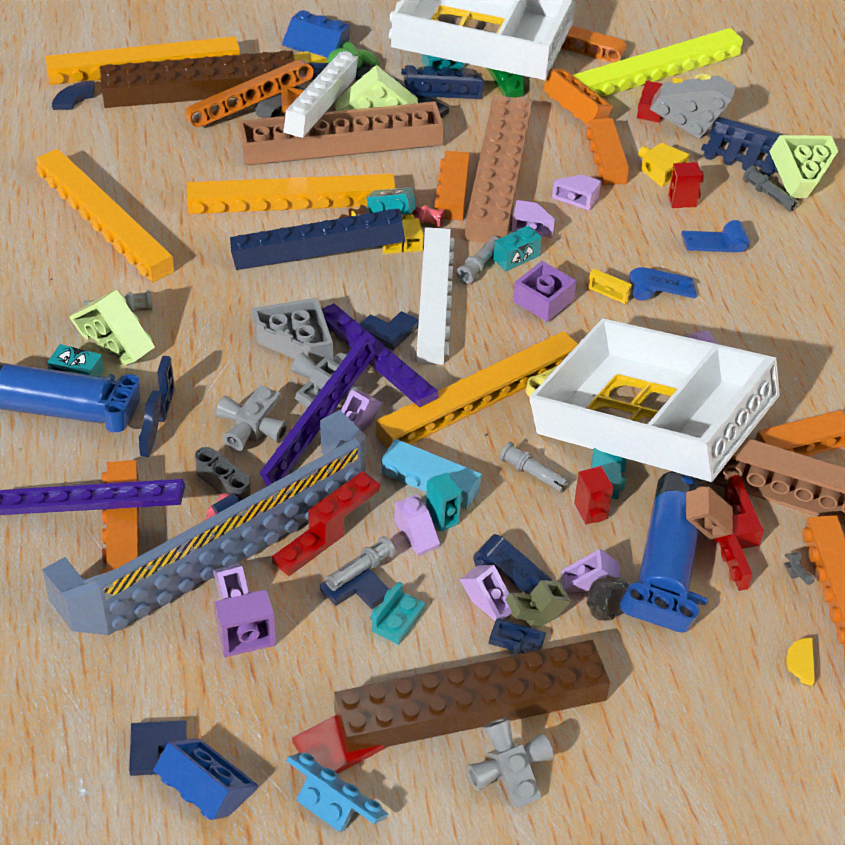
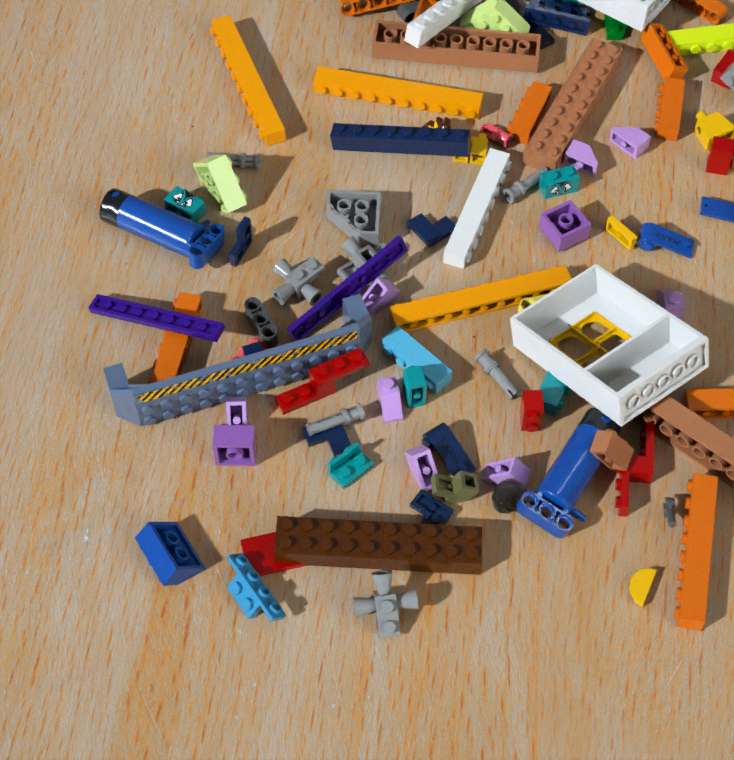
camera: 20 degrees right, 10 degrees up
(148, 739) = (140, 514): dark blue tile -> none
(150, 423) = (222, 267): dark blue tile -> none
(384, 360) = (414, 256): dark purple plate -> none
(392, 199) = (471, 118): teal brick -> none

